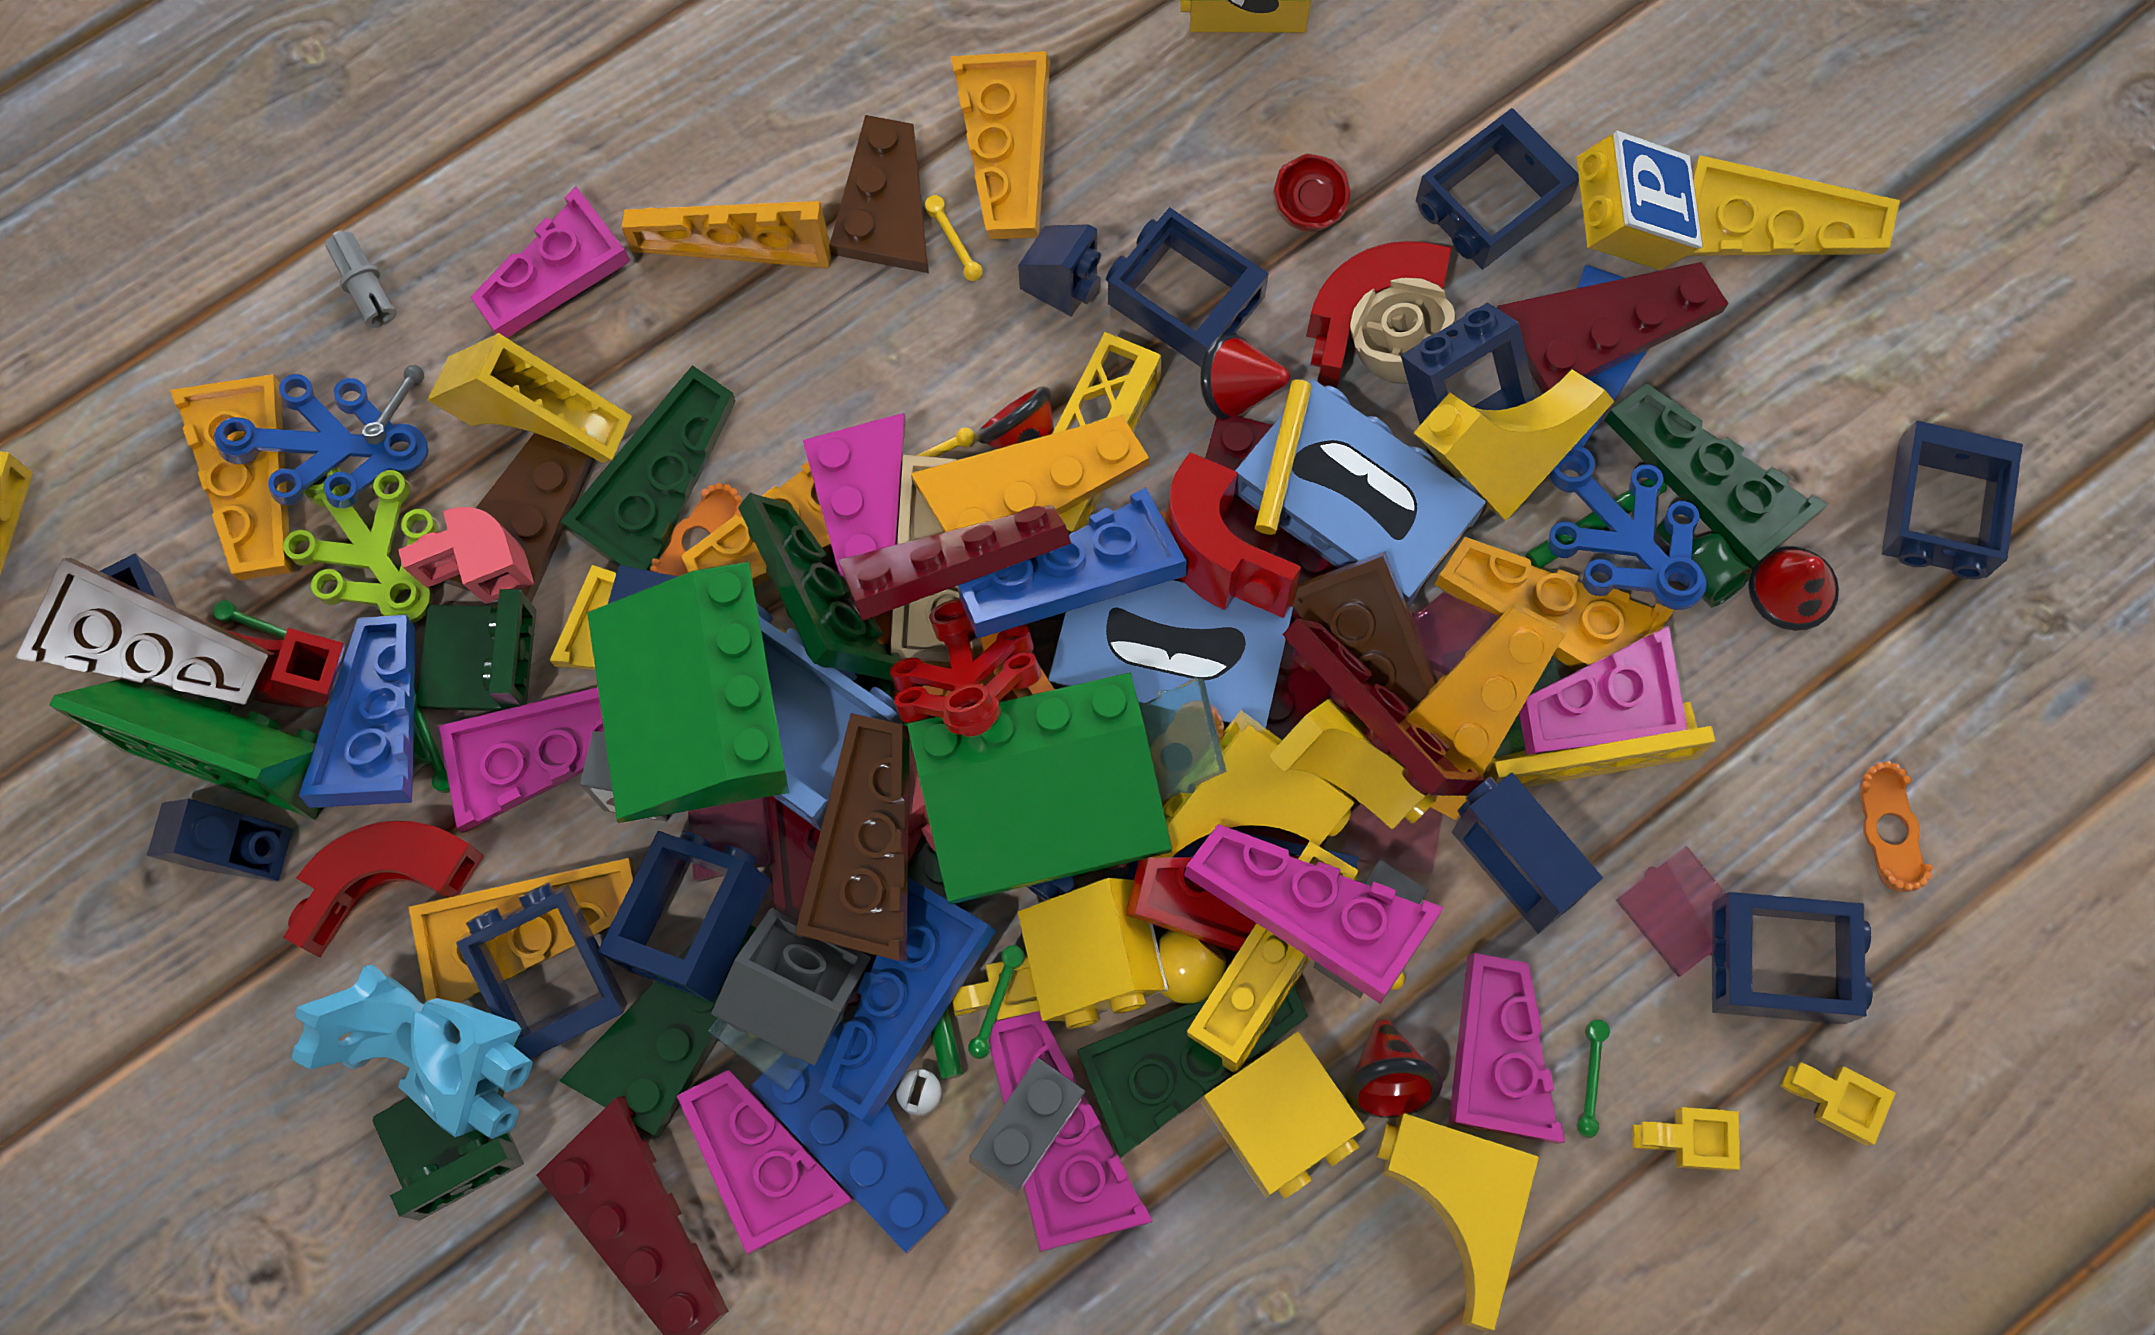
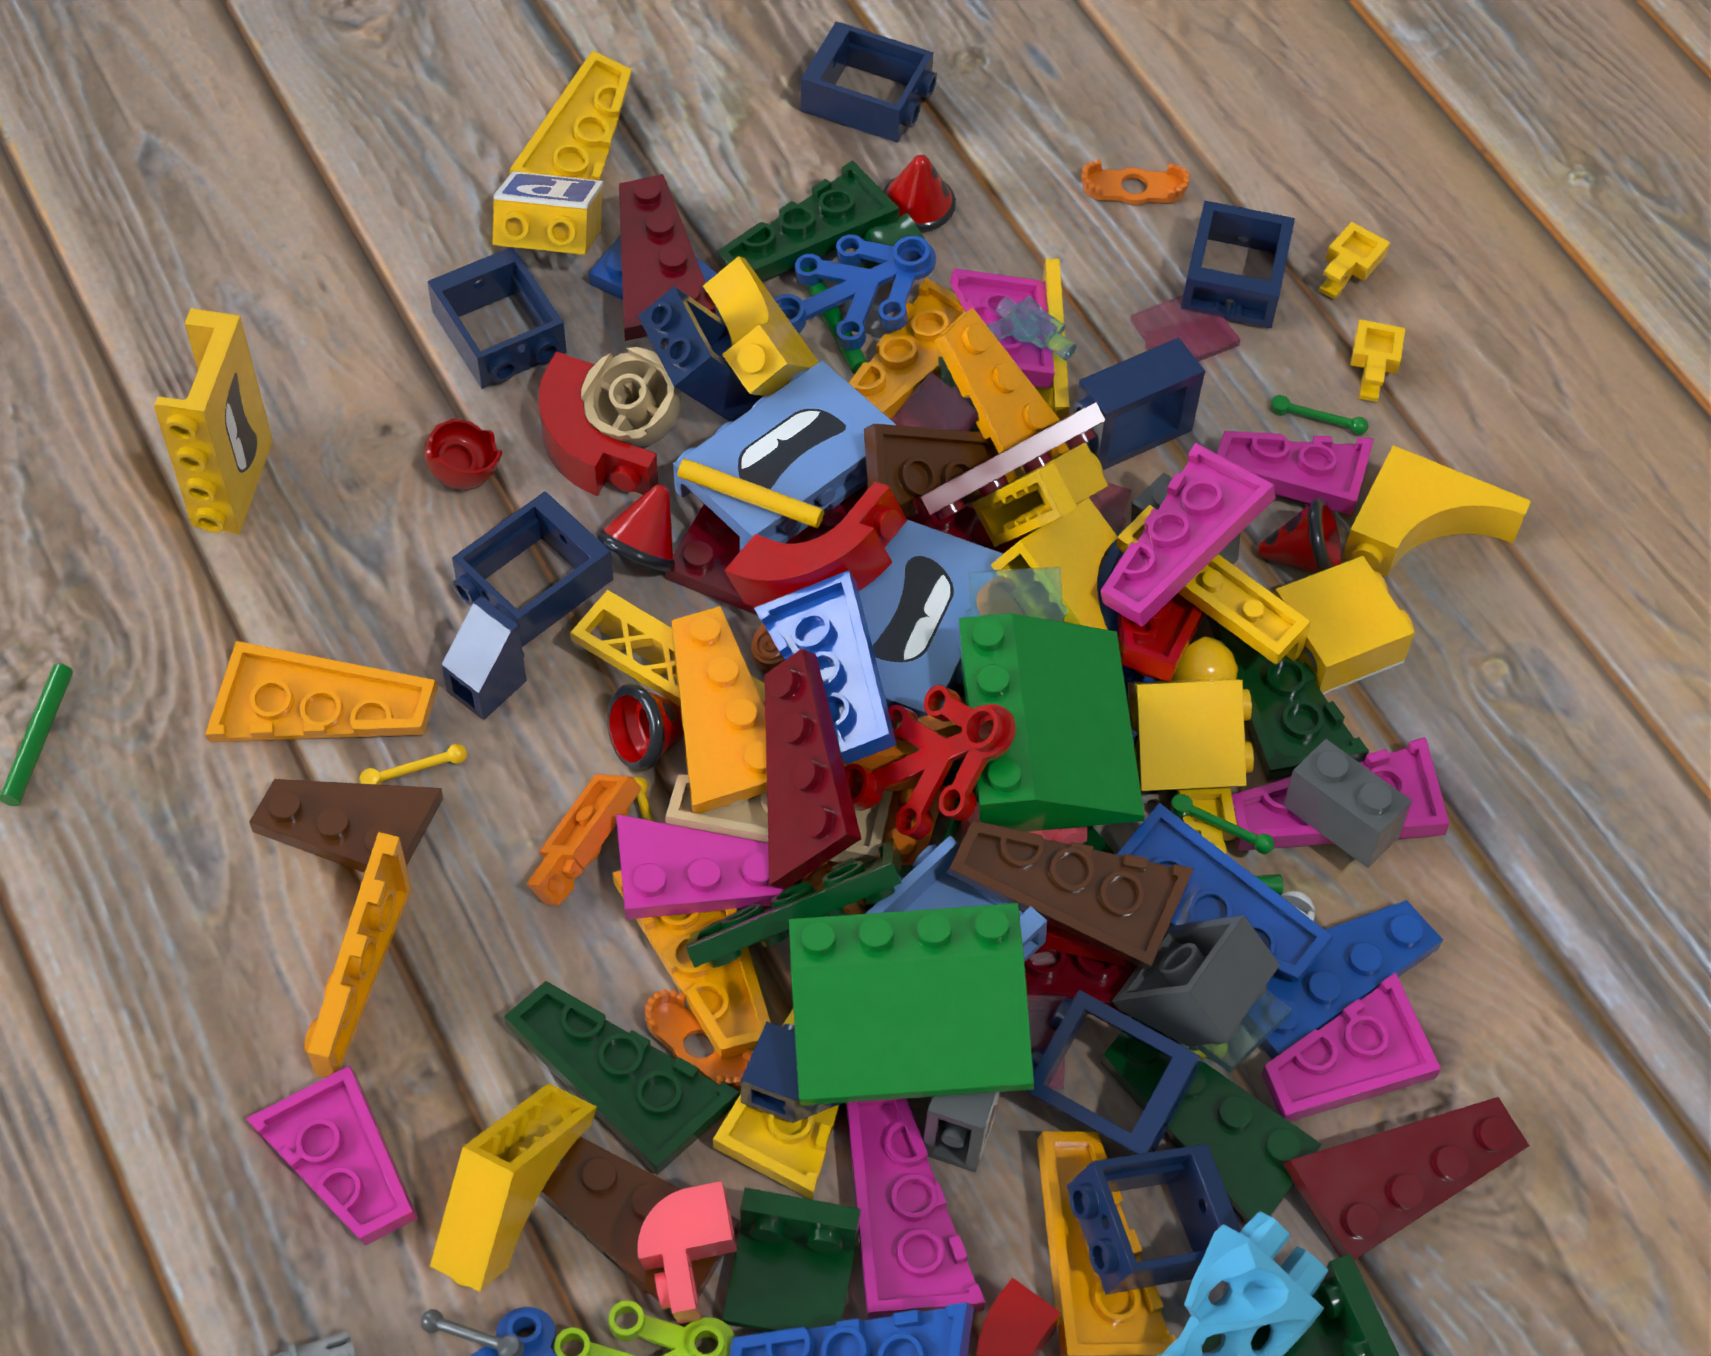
camera: 85 degrees left, 15 degrees down
(895, 392) = (581, 834): none -> orange hinge
(1598, 715) = (1031, 324): none -> clear light blue piece

